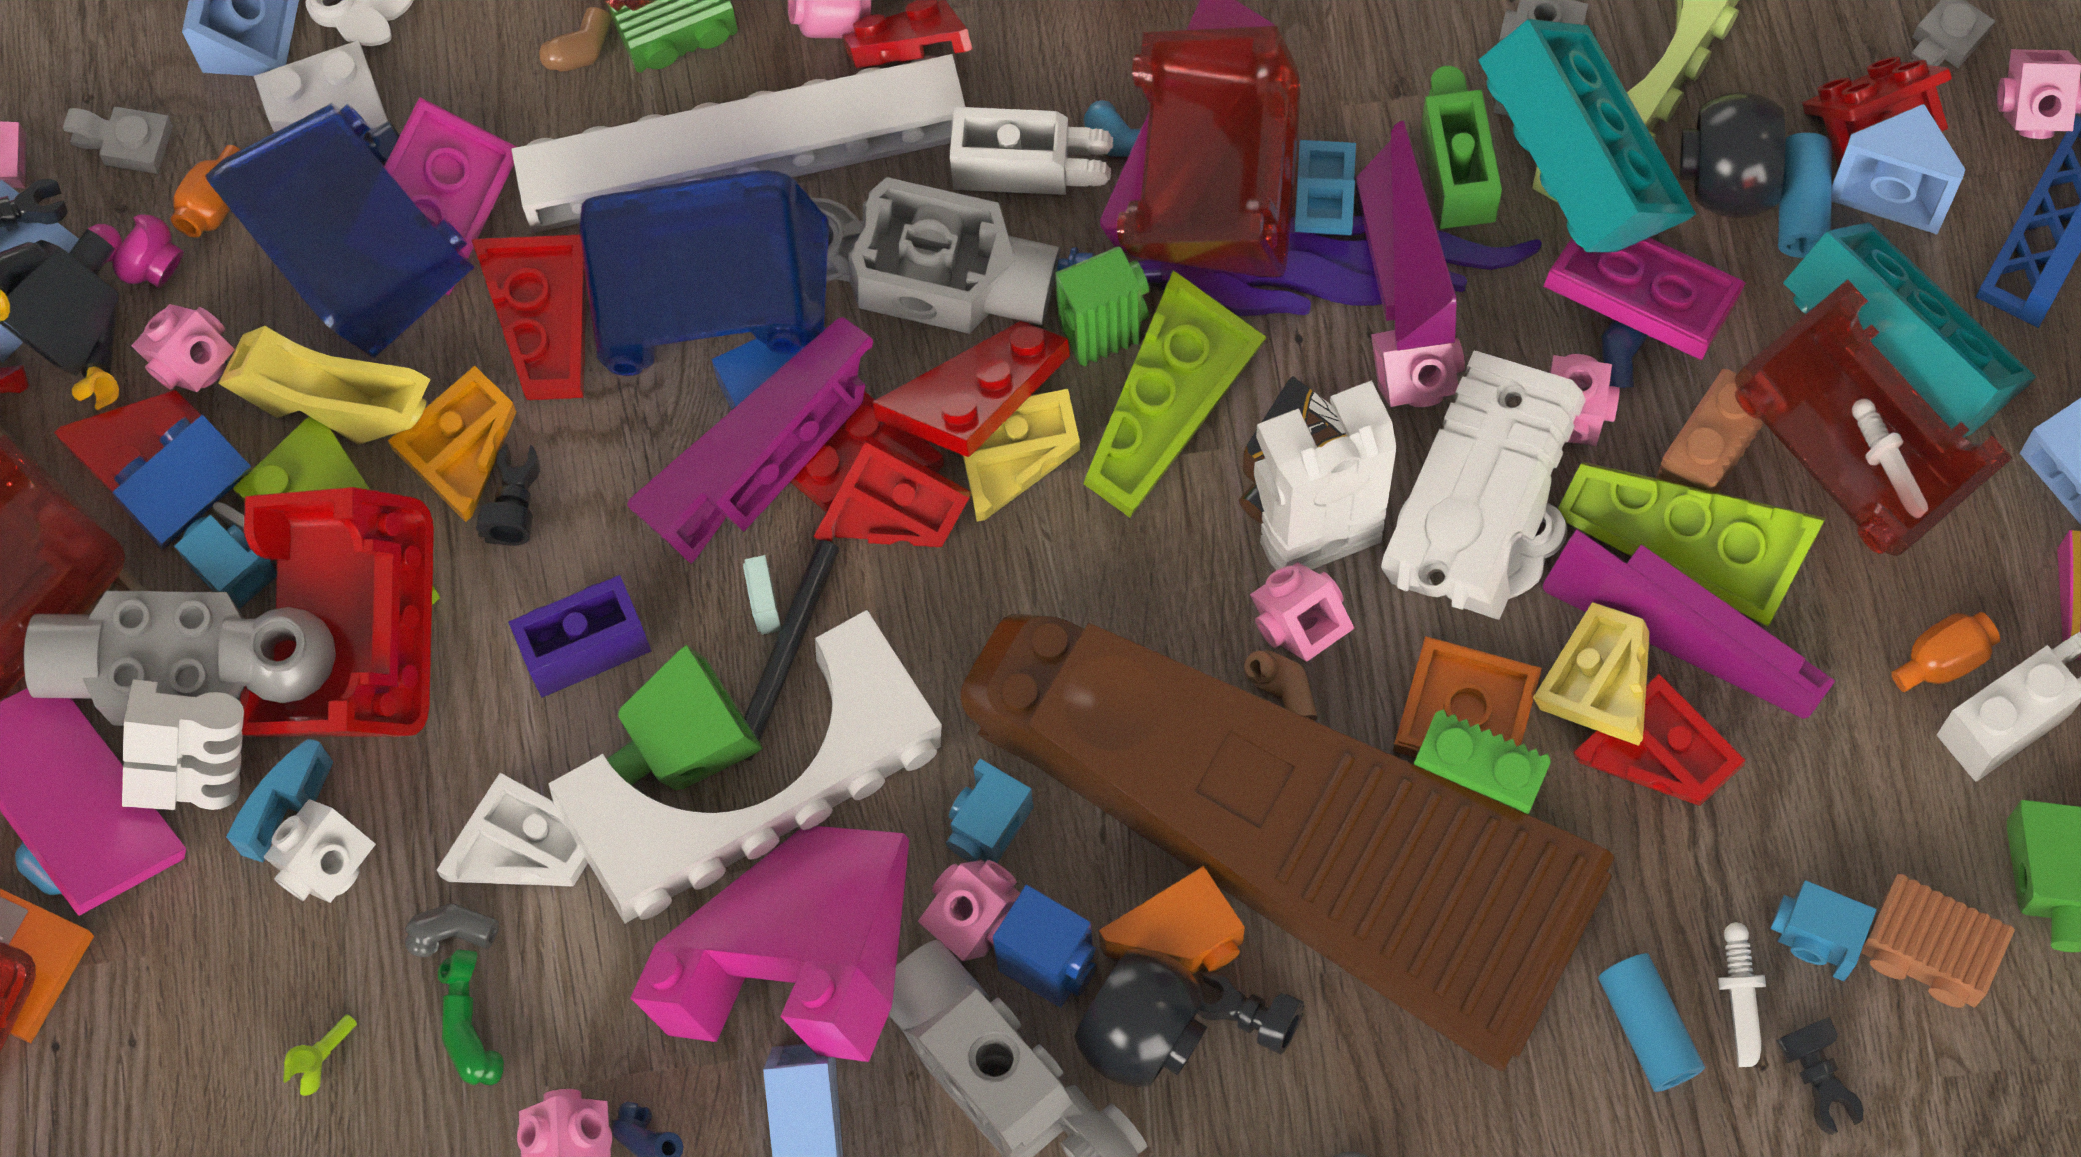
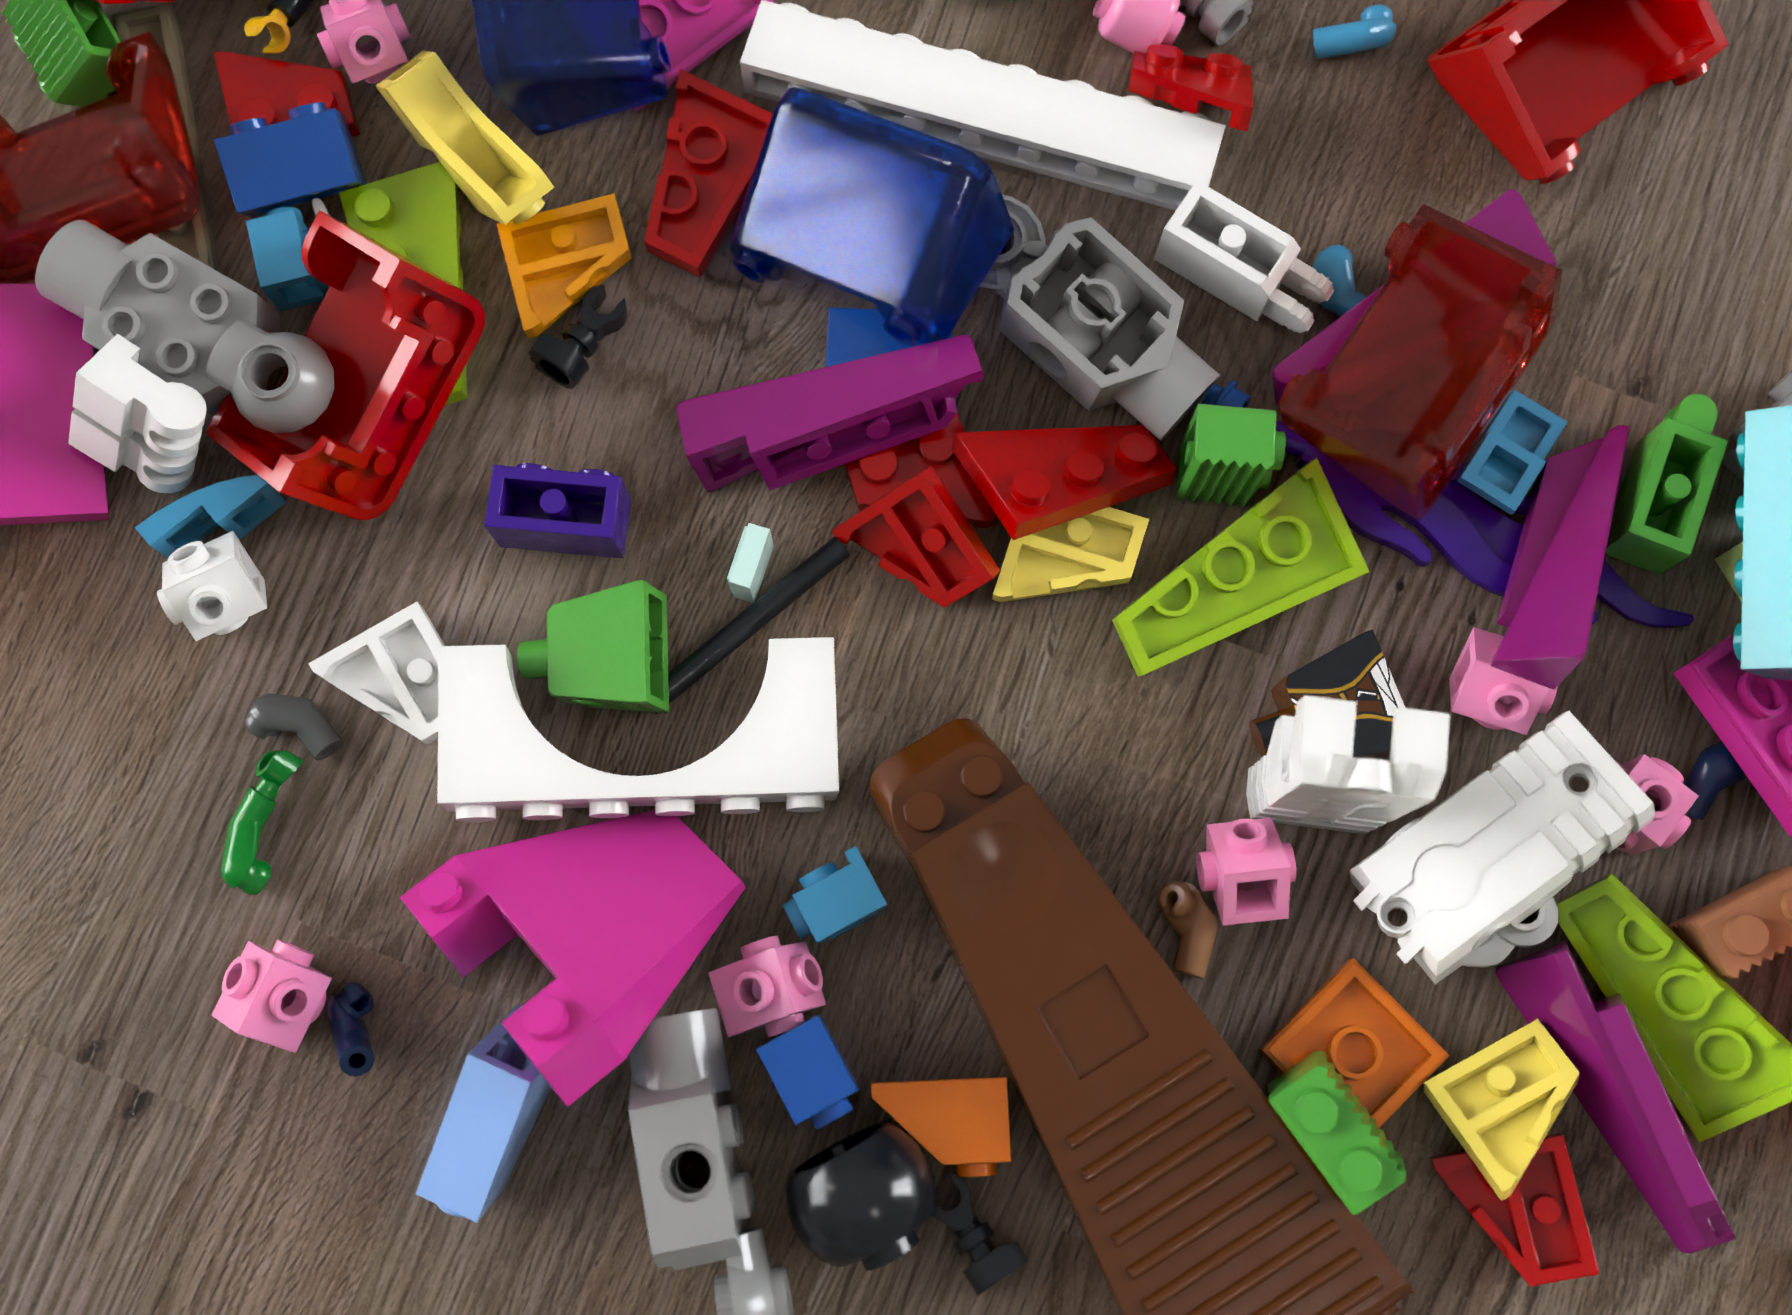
camera: 25 degrees right, 10 degrees up
(309, 1059) = (110, 775): lime hand -> none

